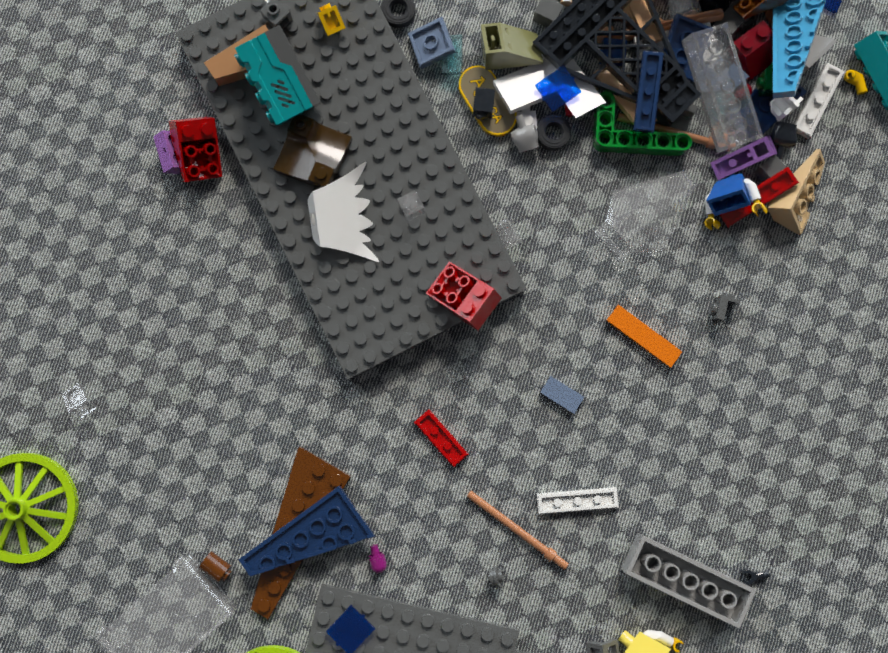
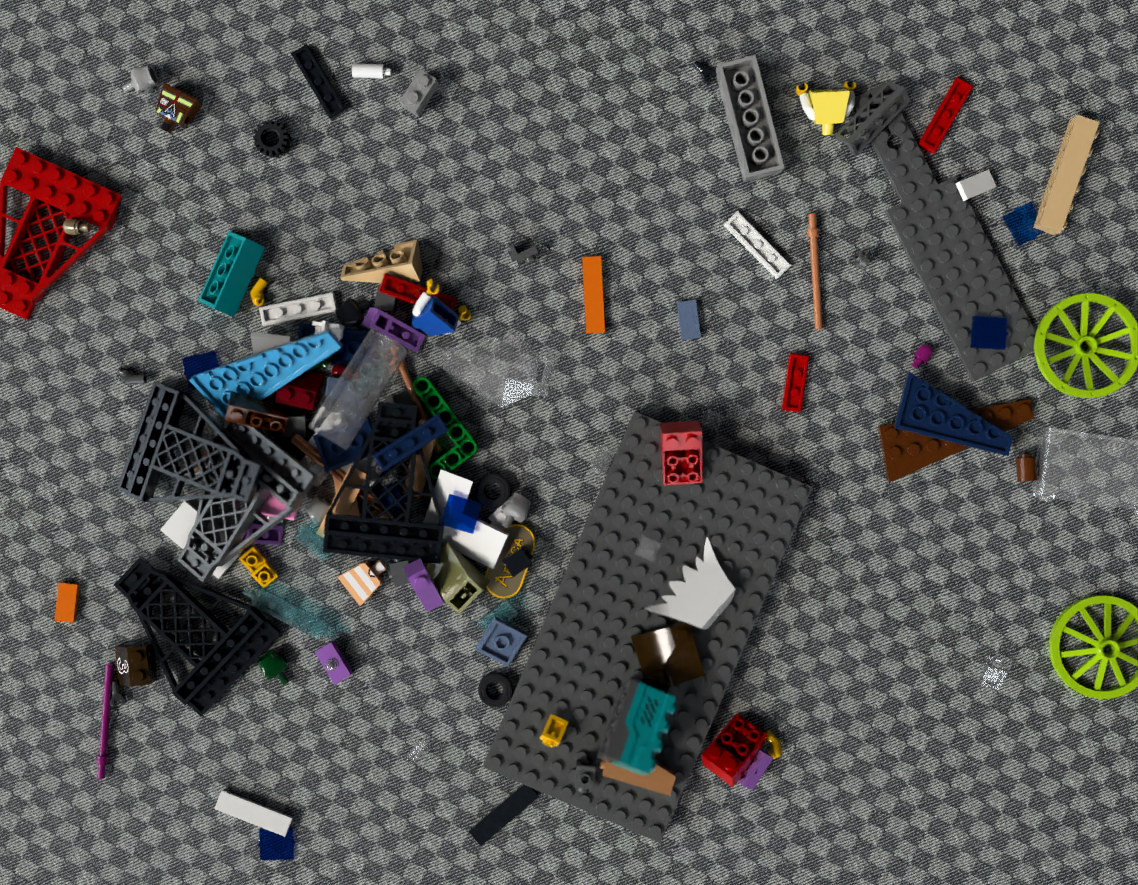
camera: 130 degrees left, 5 degrees up
(172, 185) = (775, 744): none -> yellow arm
(527, 15) = (423, 585): none -> medium lavender slope

